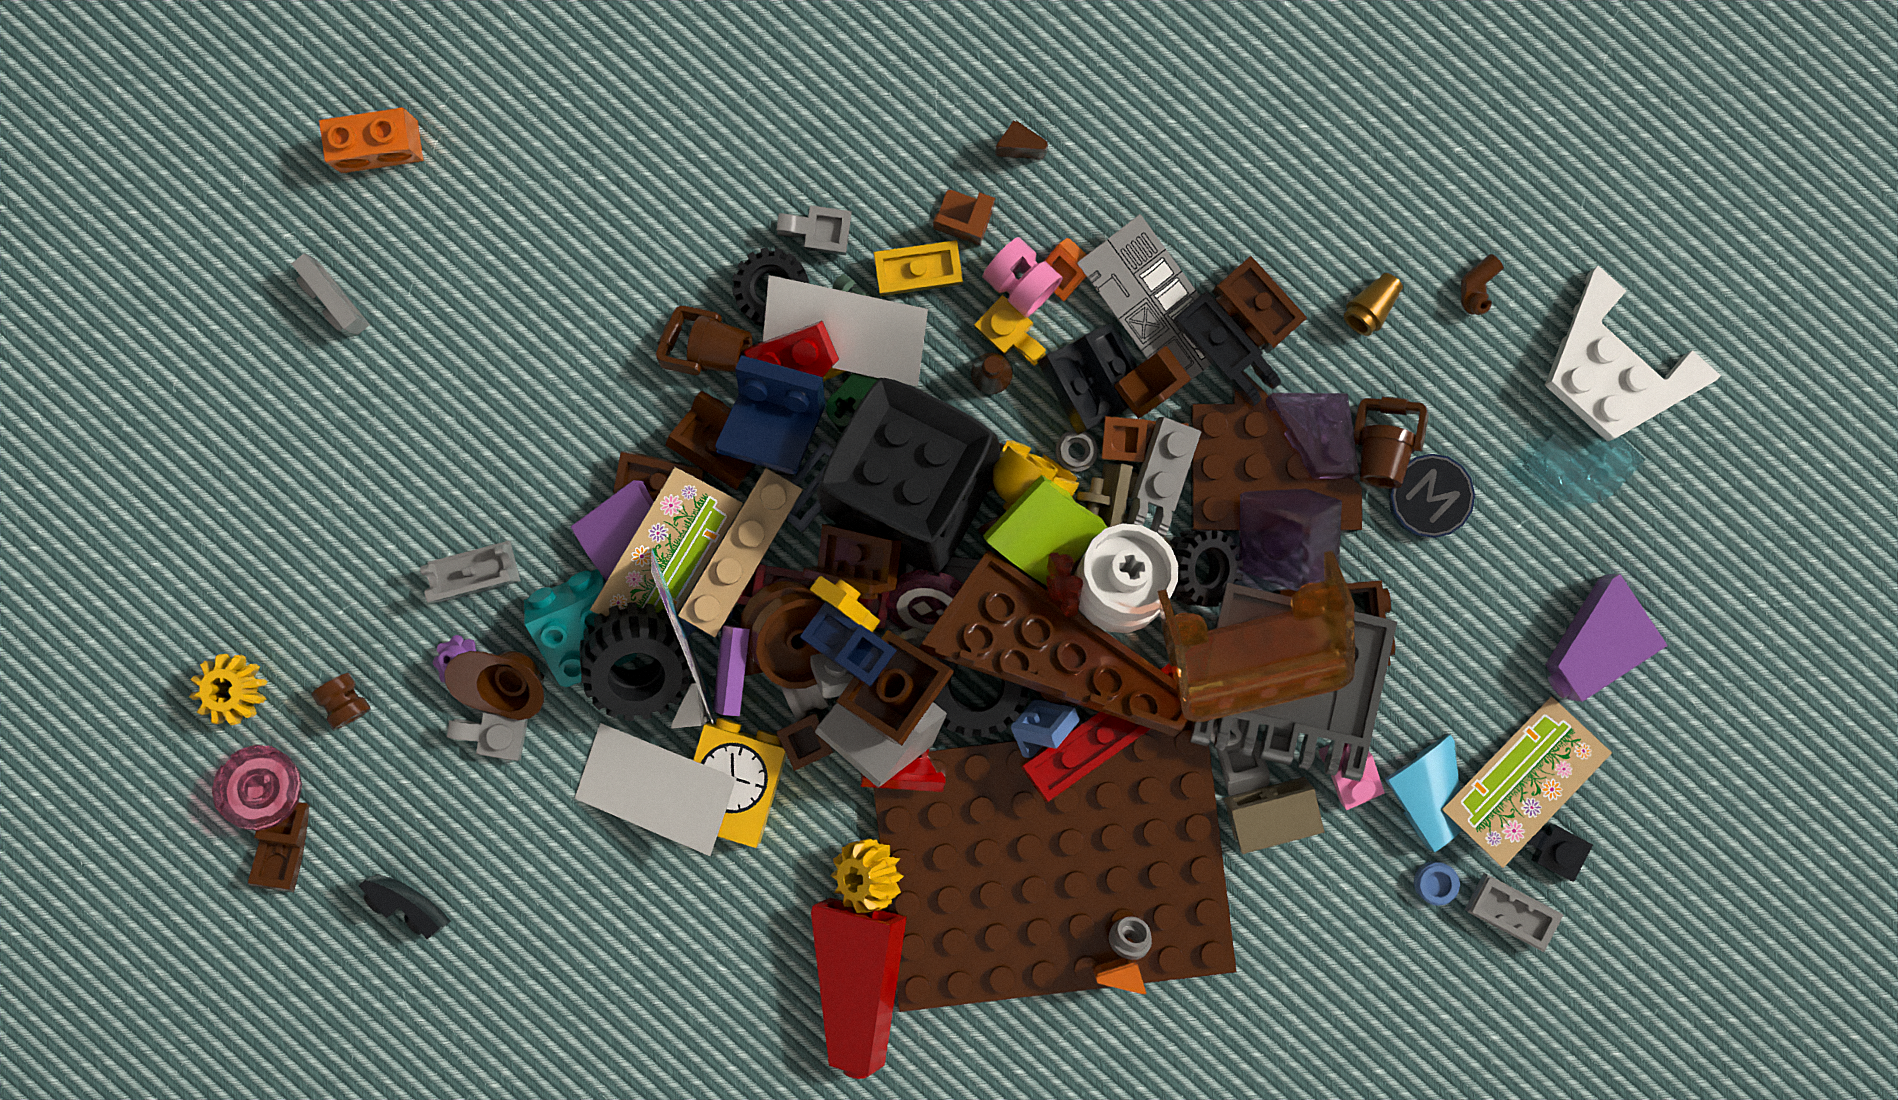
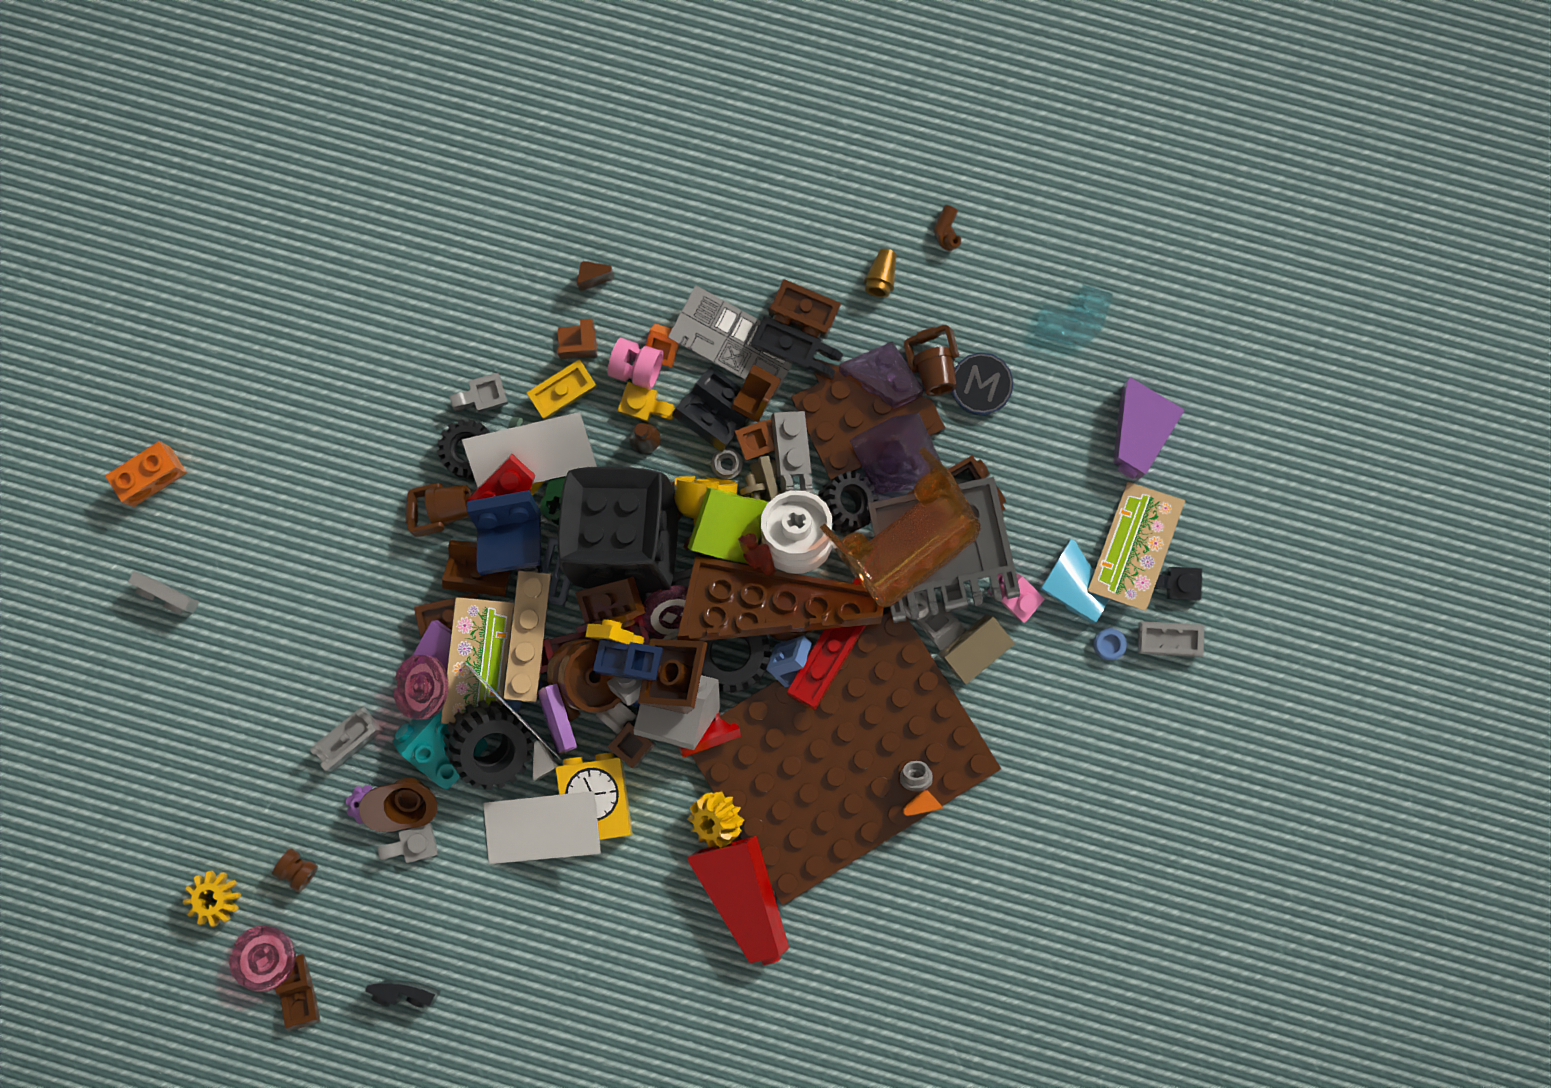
camera: 30 degrees left, 5 degrees down
(585, 554) = (421, 687): none -> clear pink tile
(1605, 378) = (1062, 252): white wing -> none

